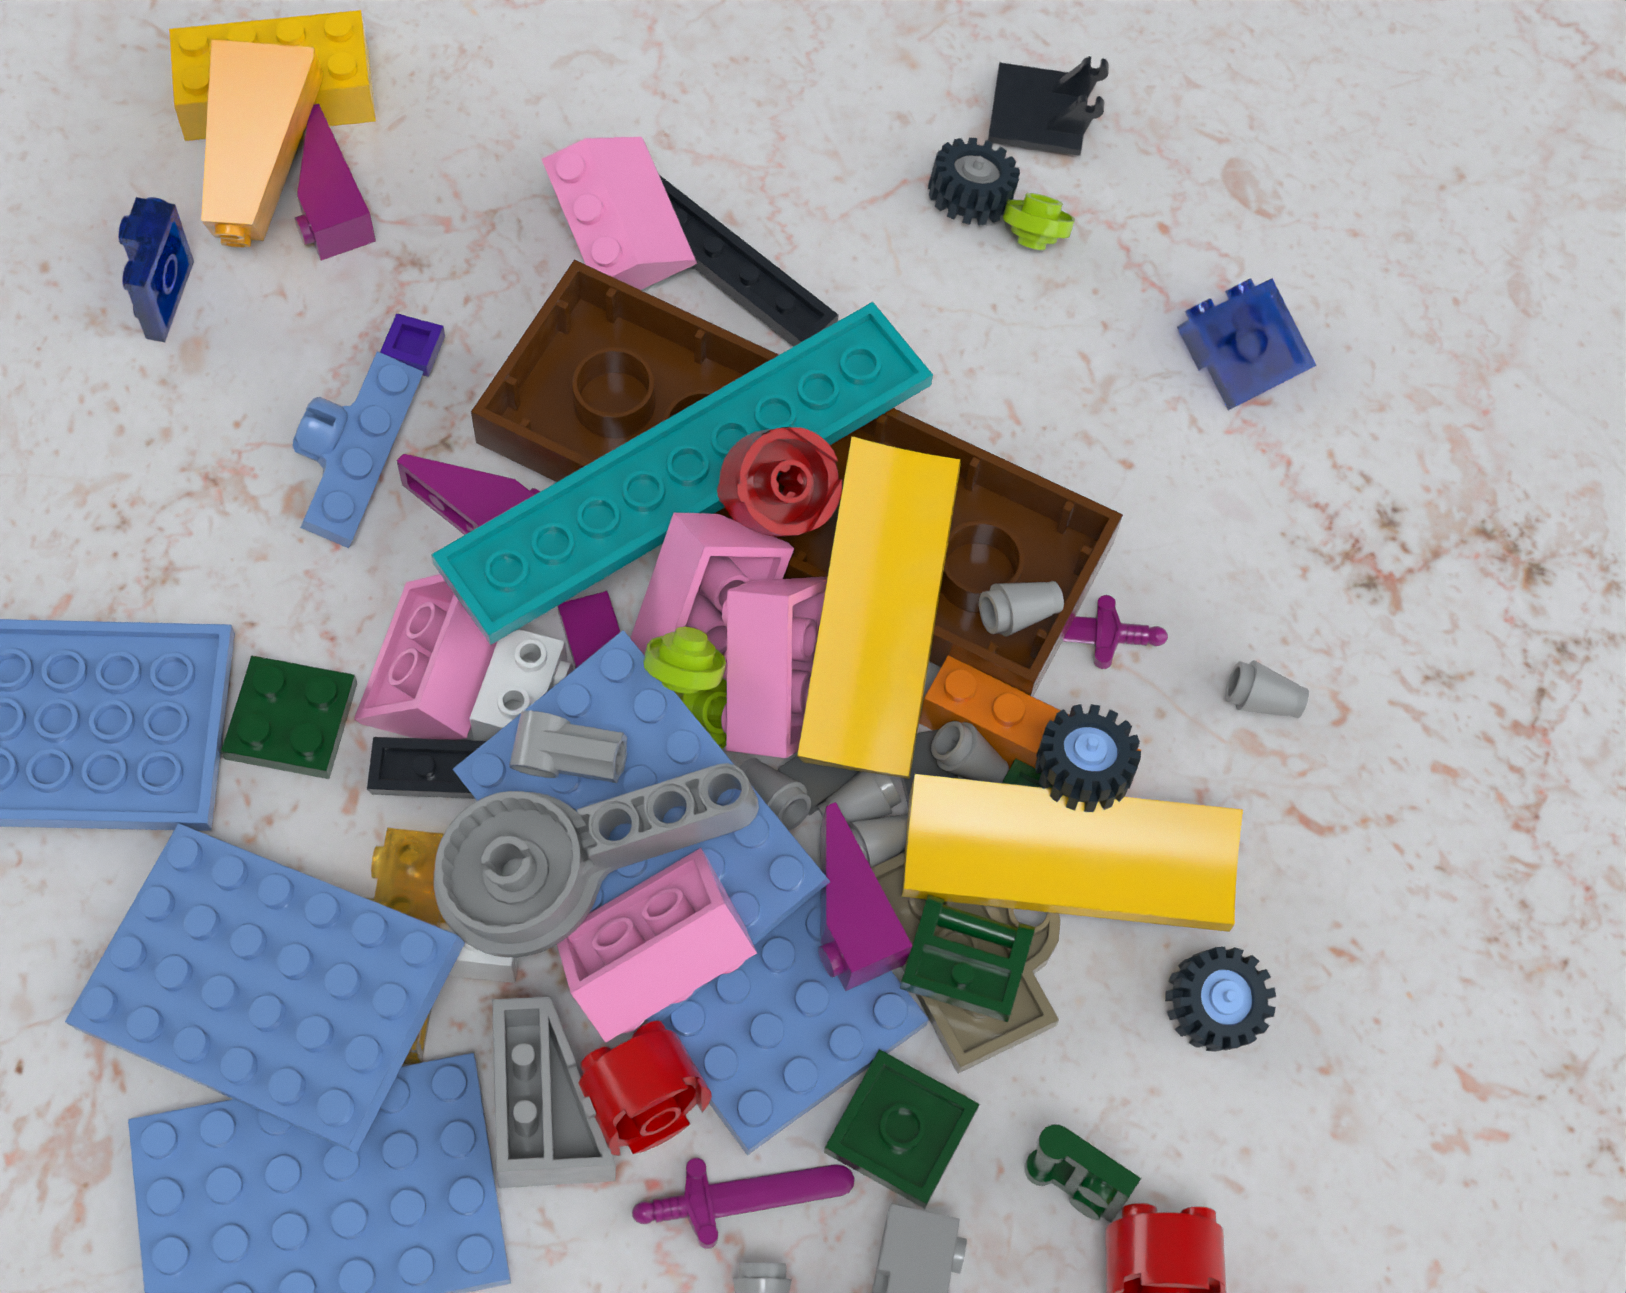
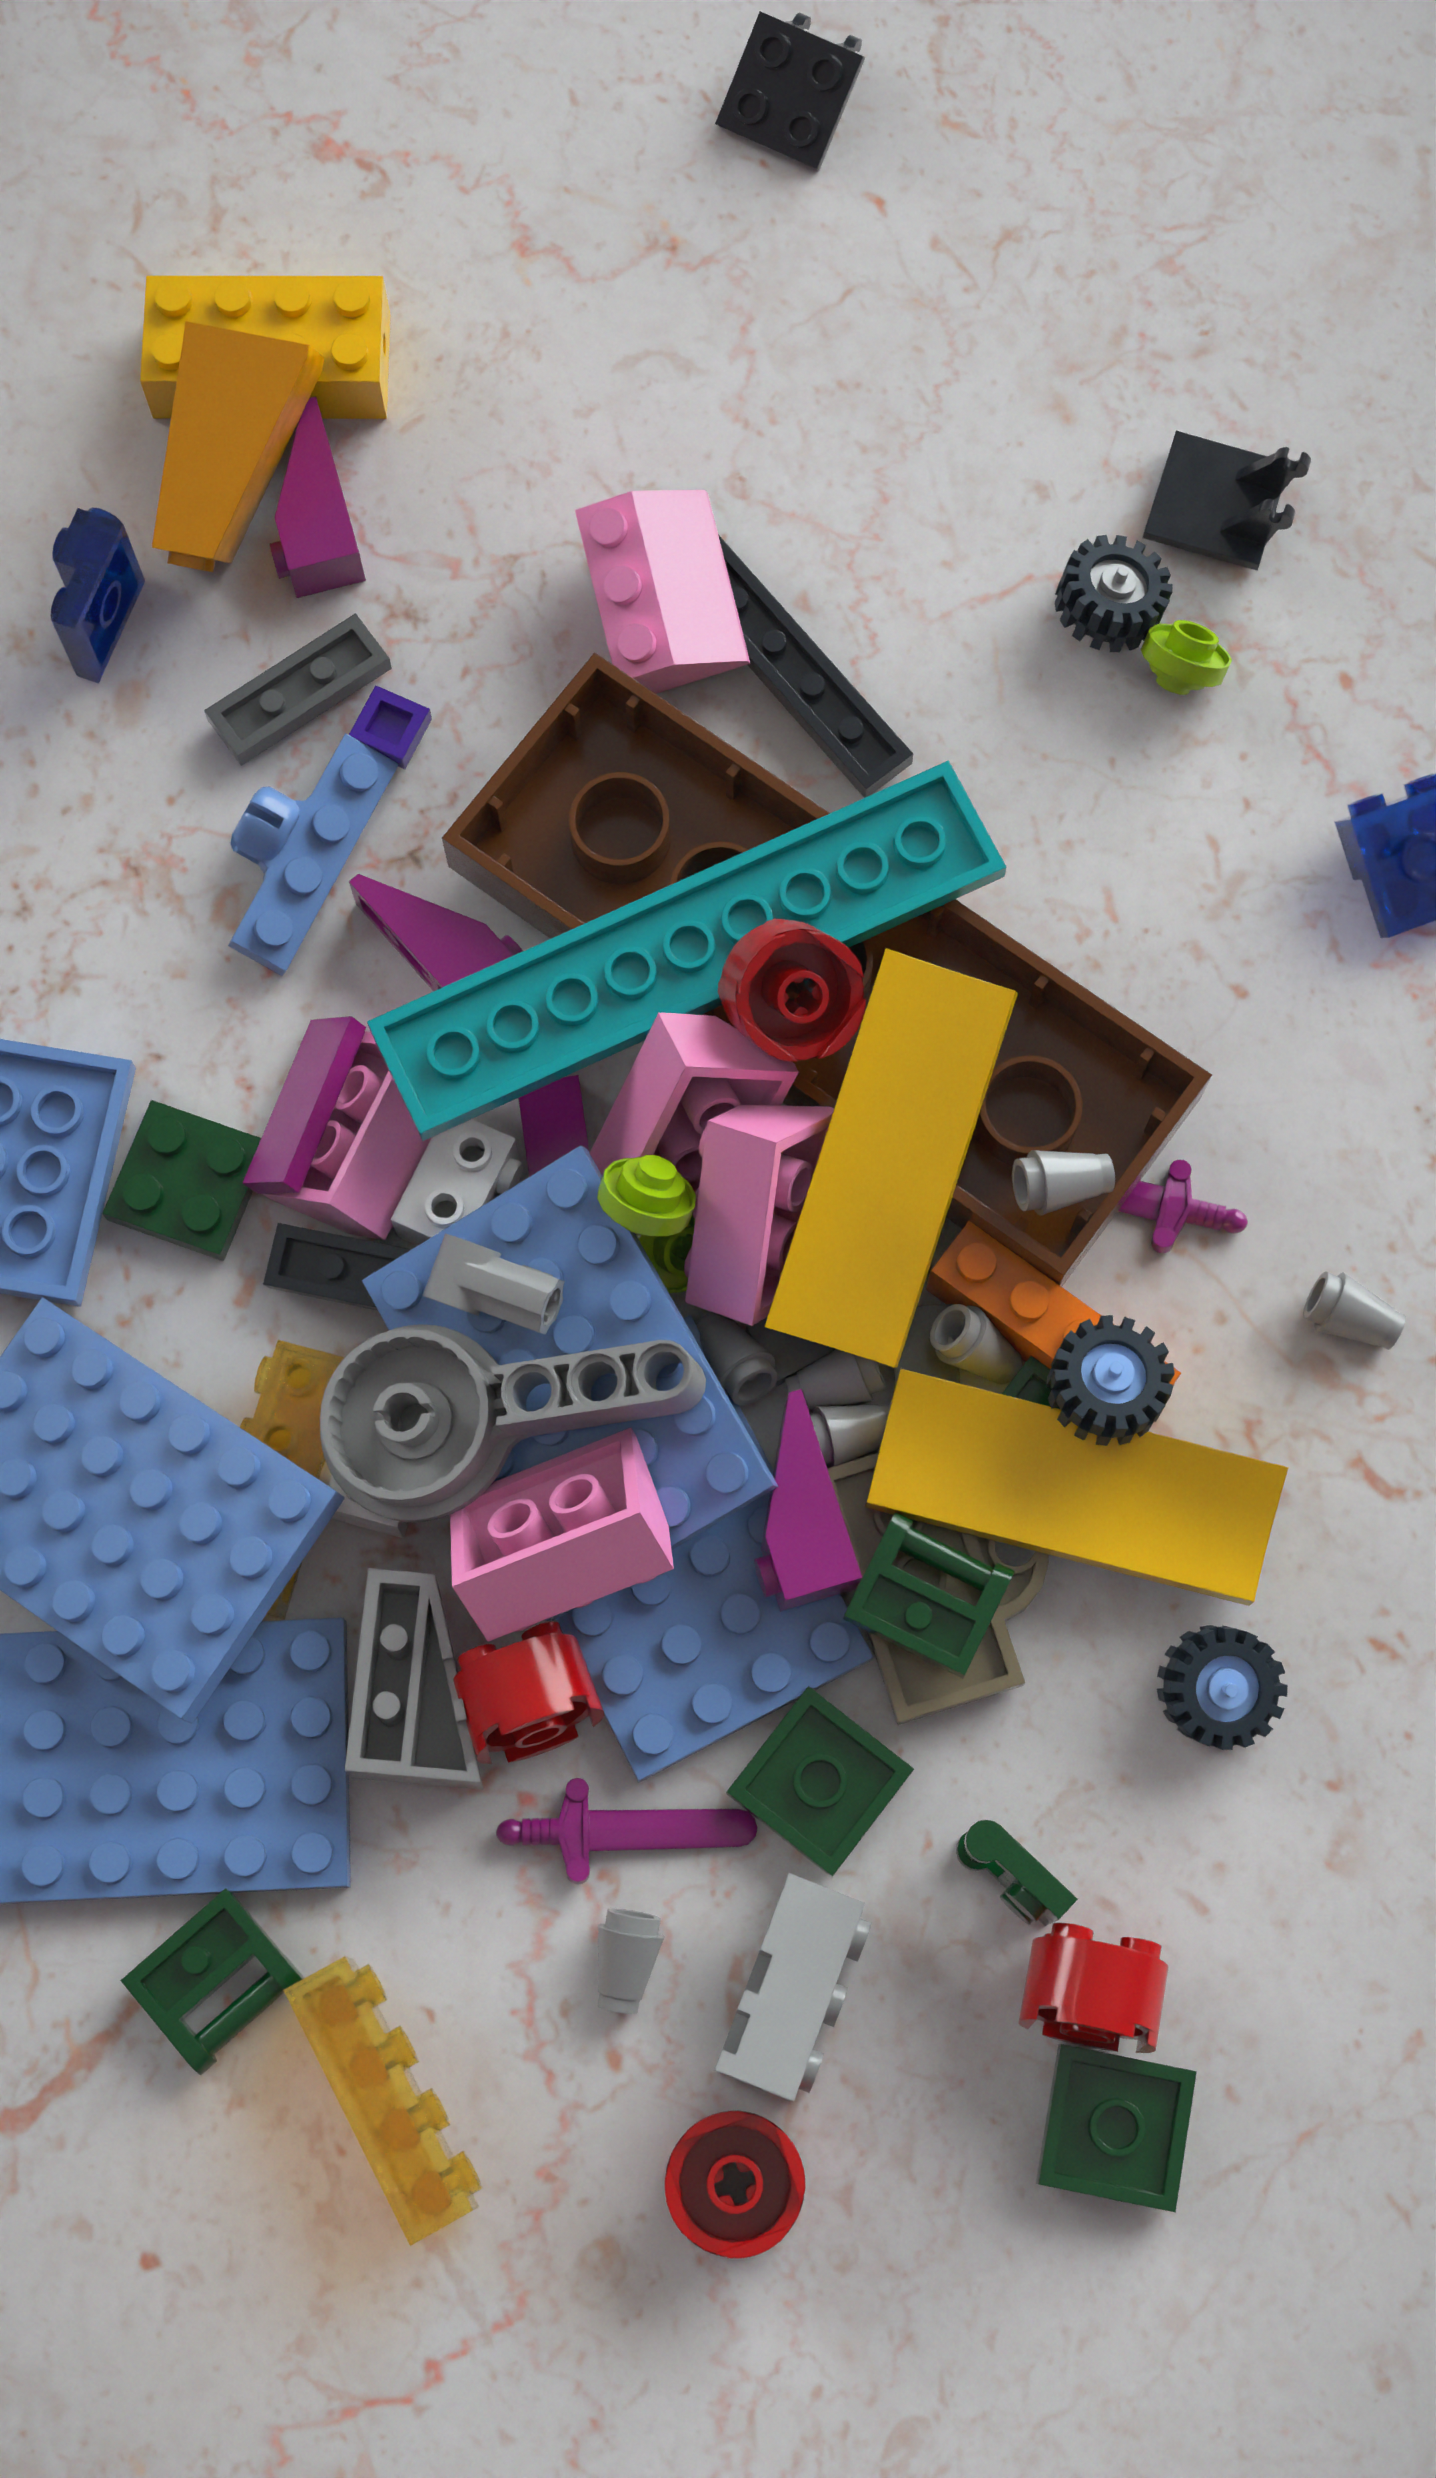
camera: 15 degrees right, 10 degrees up
(332, 325) = (298, 689): none -> dark grey plate
(383, 642) = (304, 1105): none -> magenta tile

